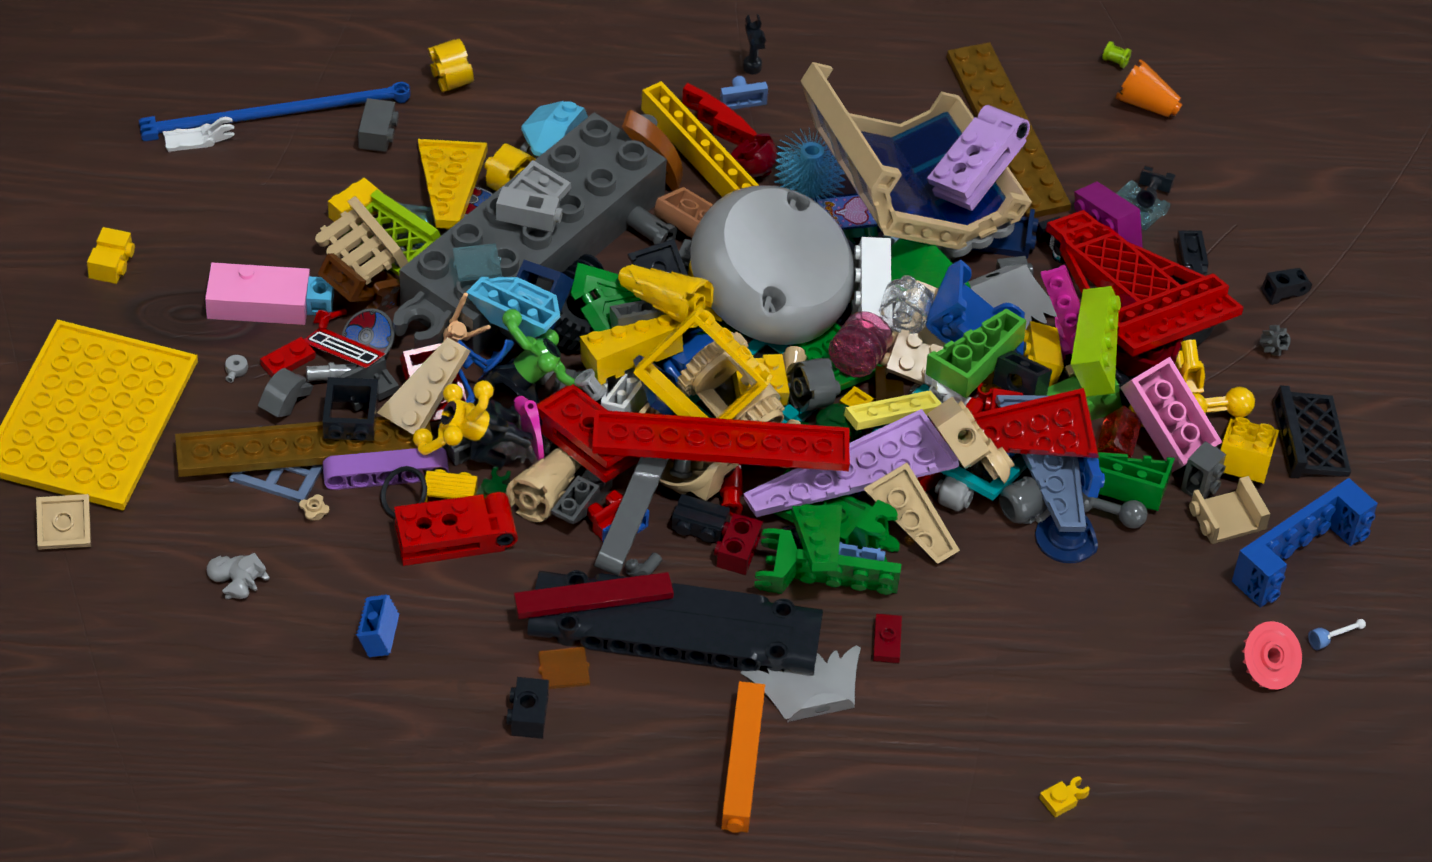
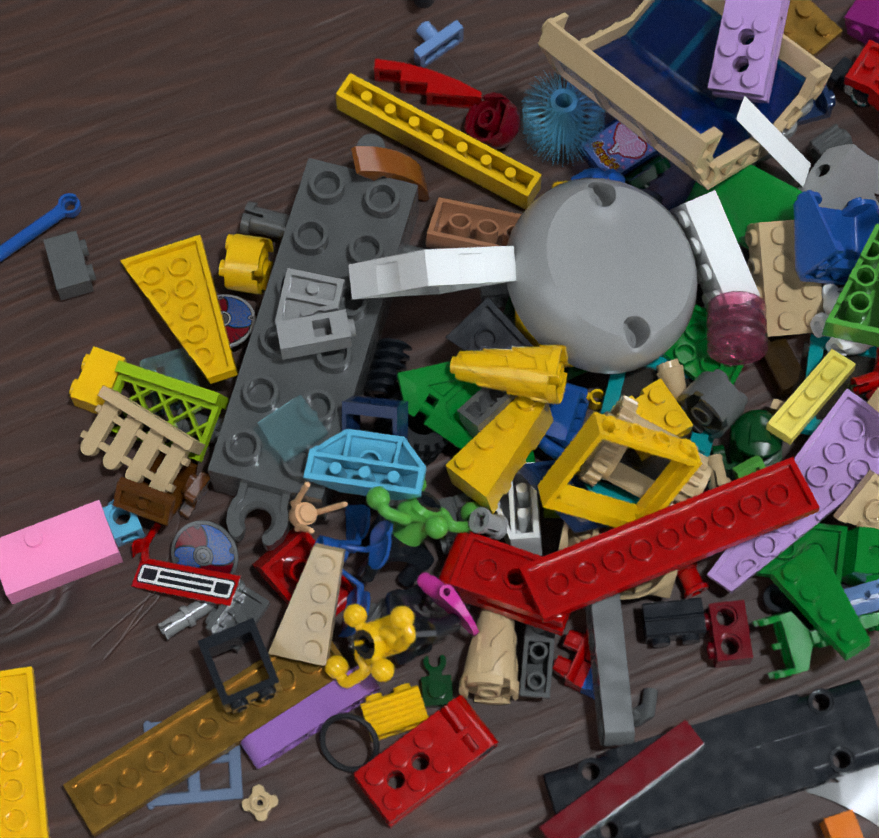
camera: 20 degrees left, 20 degrees up
(235, 367) = (79, 662): light grey piece -> none
(283, 391) = (153, 672): dark grey brick -> none
(289, 357) = (129, 617): red plate -> none
(450, 65) = (109, 149): yellow brick -> none
(550, 124) = (262, 188): medium azure wedge -> none
(639, 201) = (432, 272): none -> white tile
(856, 397) = (756, 390): yellow plate -> none
(906, 305) = (771, 266): clear brick -> none
(959, 232) = (773, 141): none -> white sticker

